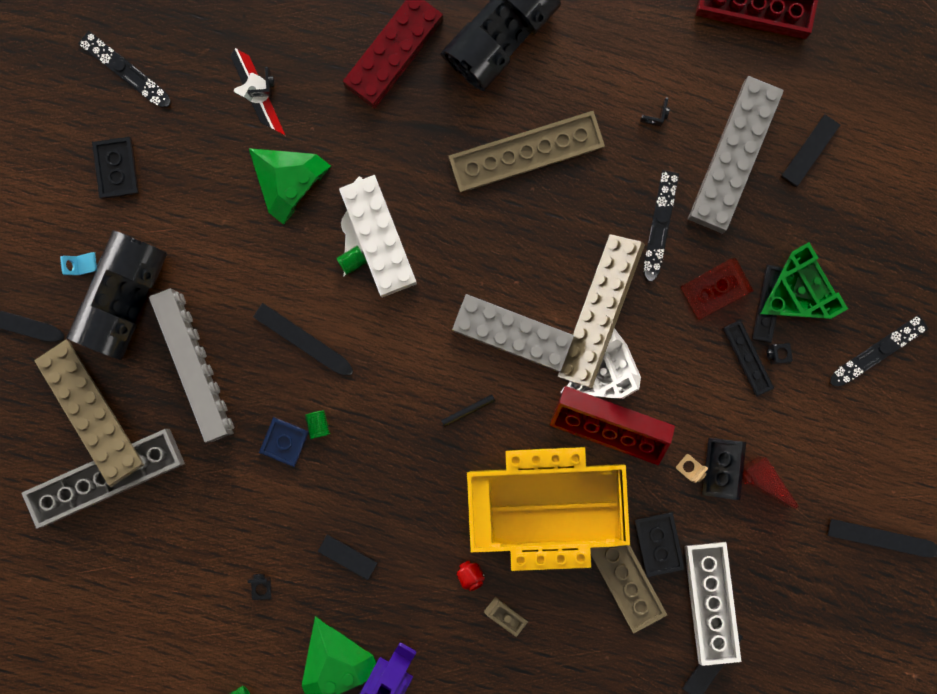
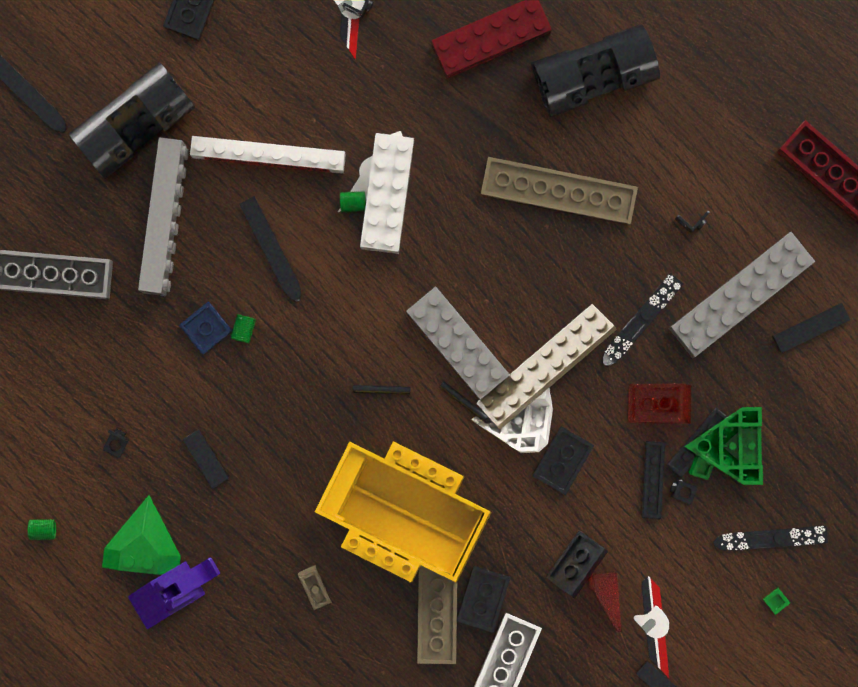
camera: 30 degrees right, 0 degrees up
(81, 264) = (115, 75): medium azure bracket -> none
(89, 413) = (51, 209): dark tan plate -> none
(254, 260) = (267, 154): none -> white brick
(286, 178) = (335, 98): green wedge -> none
(470, 576) = (303, 534): red head -> none
(545, 381) = (463, 401): none -> black bar
(612, 425) = (499, 472): dark red brick -> none
(661, 385) = (563, 460): none -> black plate
(698, 472) = (551, 556): tan bracket -> none
(784, 324) = (701, 468): none -> green tile
(819, 483) = (654, 624): none -> sticker
(913, 404) = (776, 601): none -> green tile

